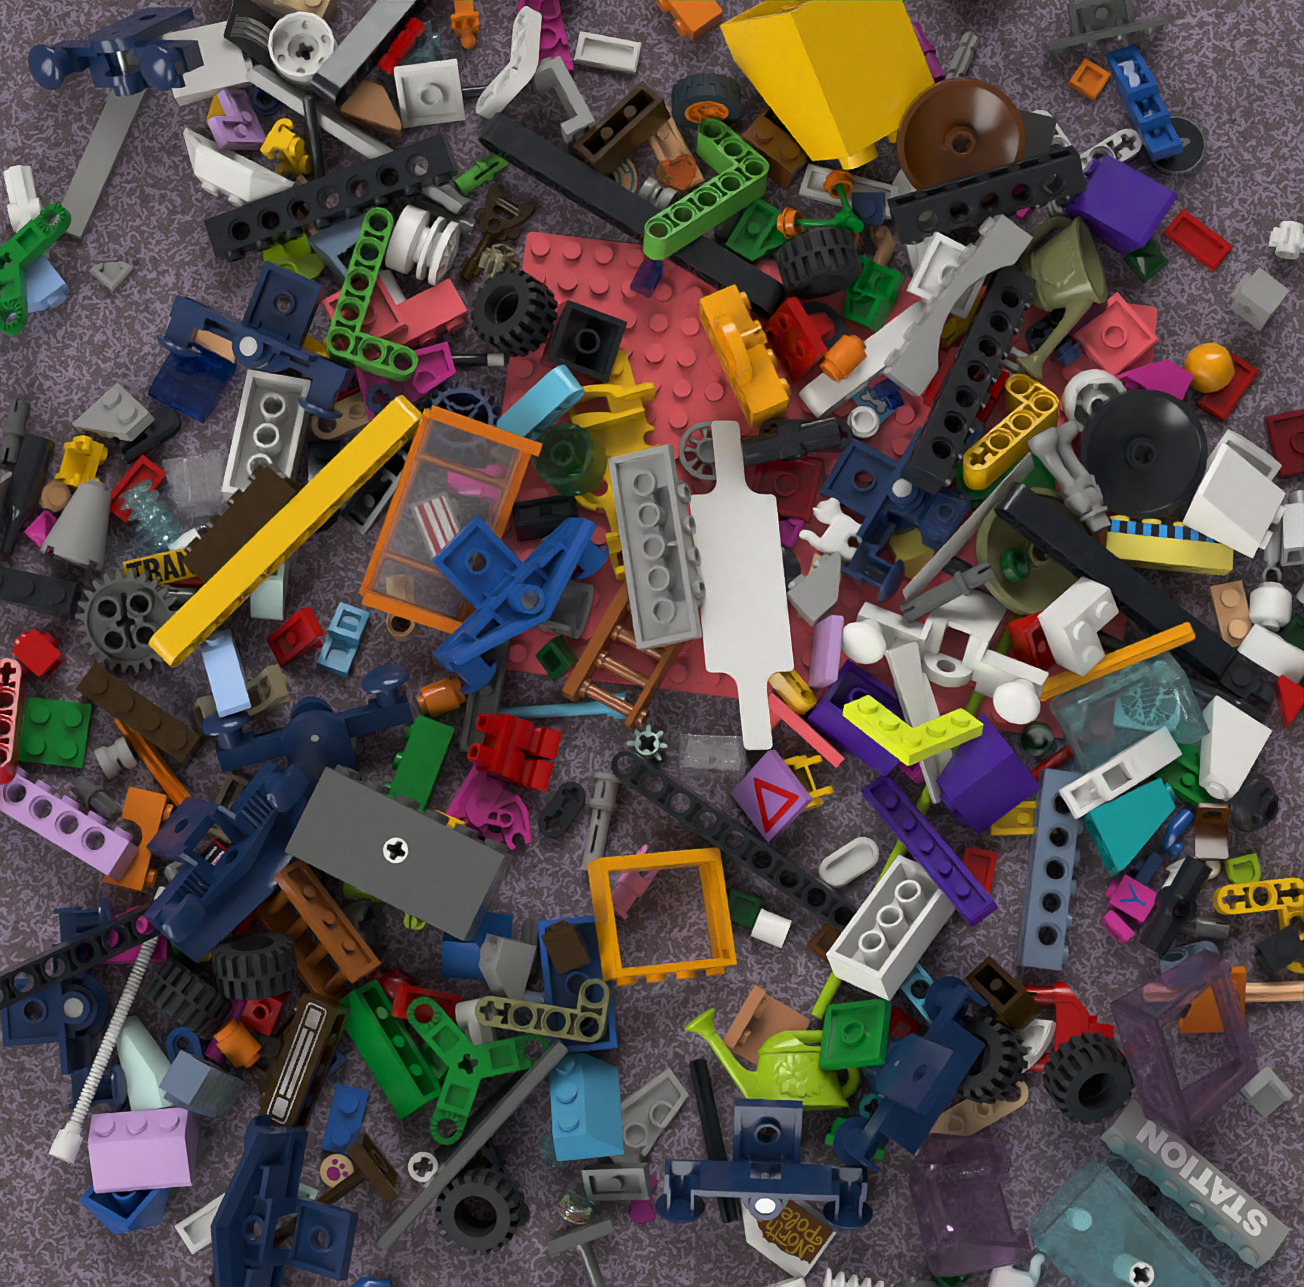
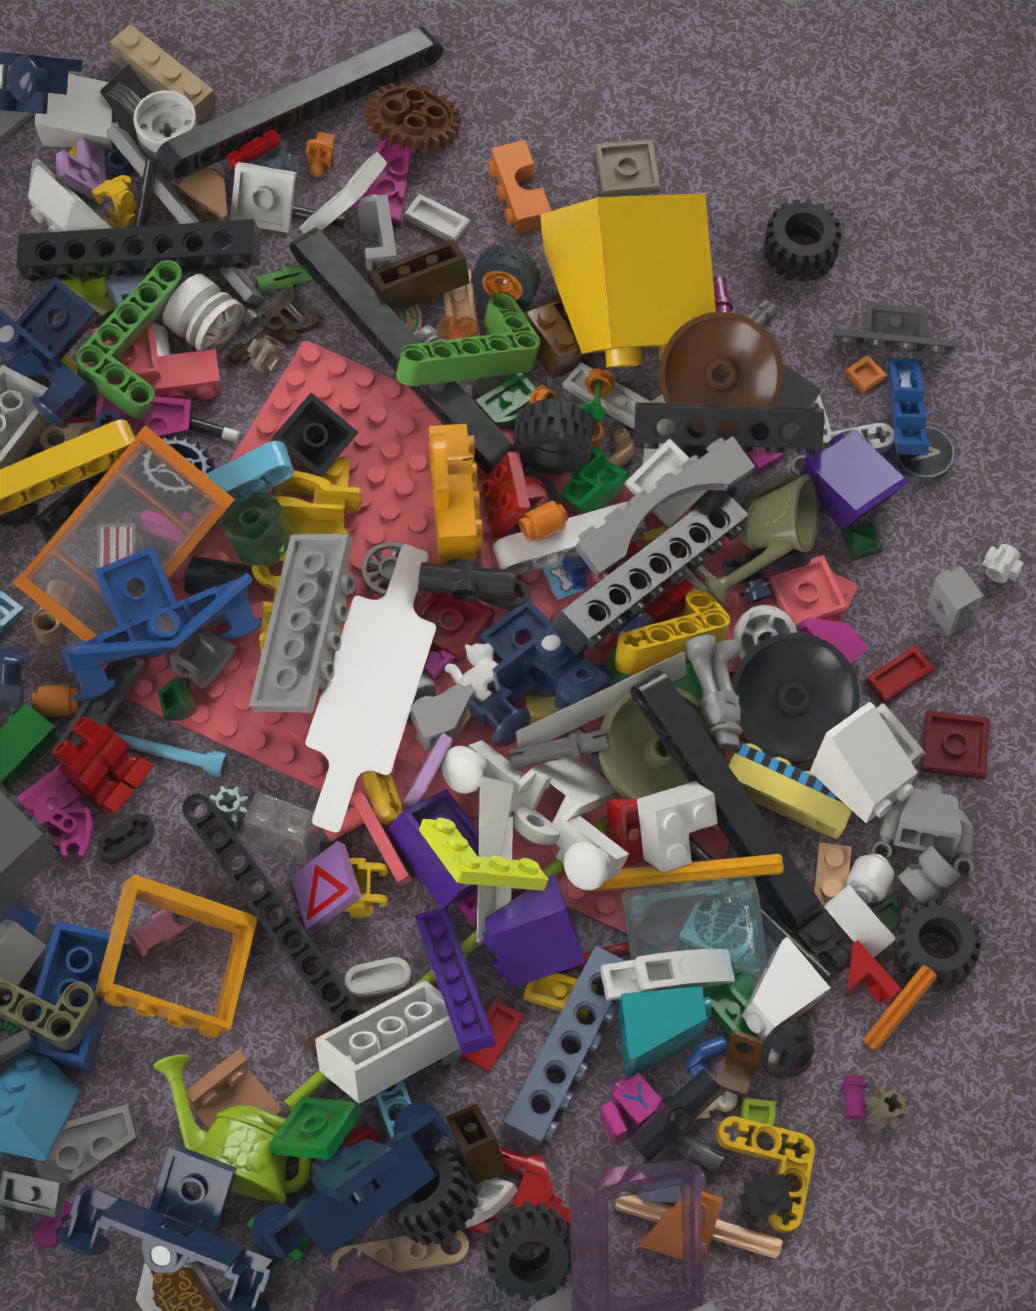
camera: 15 degrees right, 15 degrees down
(512, 331) = (260, 394): black tyre -> none
(566, 947) = (69, 946): dark brown slope -> none
(596, 656) = (213, 709): dark orange fence -> none
(603, 806) = (165, 847): light grey pin -> none
(647, 277) = (396, 408): clear blue slope -> none
(711, 1130) = (144, 1185): black axle -> none
(743, 908) = (259, 985): dark green tile -> none
(771, 928) = (278, 1010): white piece -> none
(863, 422) = (544, 590): white plate -> none
(869, 207) = (618, 412): dark blue plate -> none
(1014, 564) = (633, 748): dark green tile -> none
(1037, 738) = (602, 923): dark green tile -> none
(1146, 867) = (663, 1077): dark blue plate -> none
(1197, 240) = (917, 539): red tile -> none
(1210, 367) = (887, 648): light orange hair -> none

